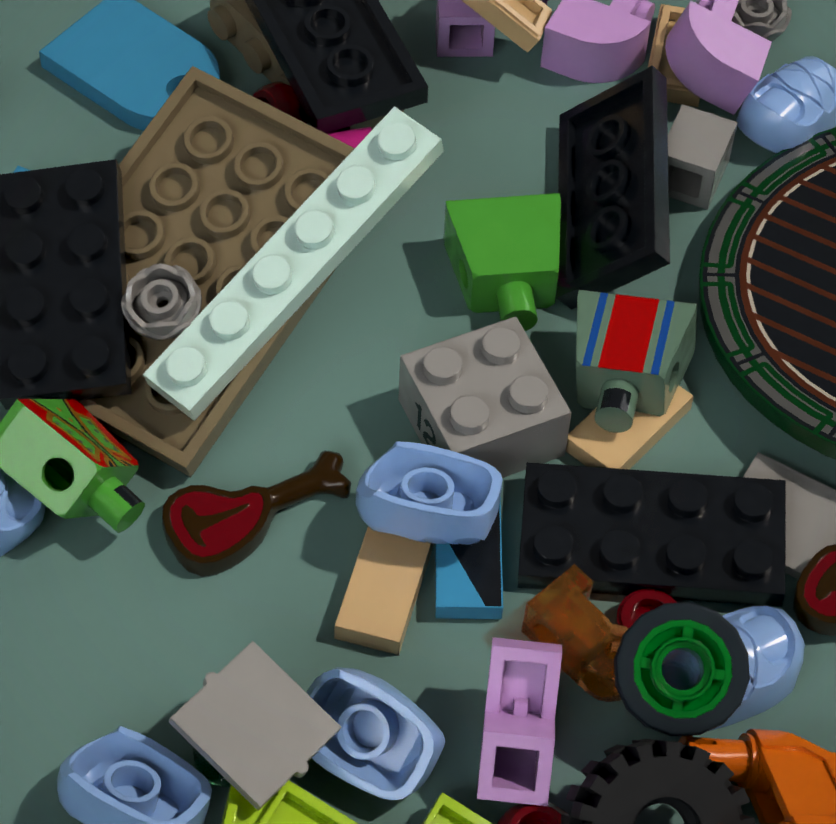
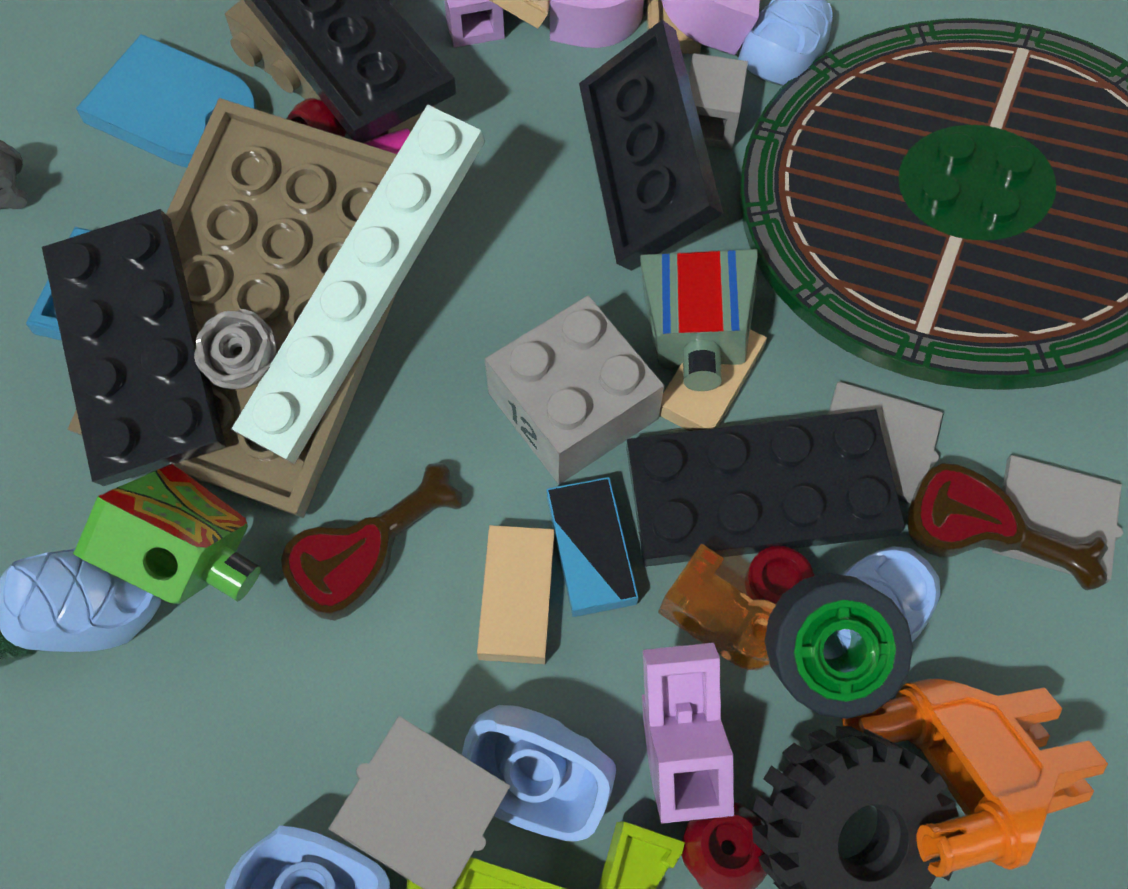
camera: 10 degrees left, 10 degrees up
(429, 495) = (544, 500): light blue piece -> none
(505, 253) = (561, 229): bright green torso -> none

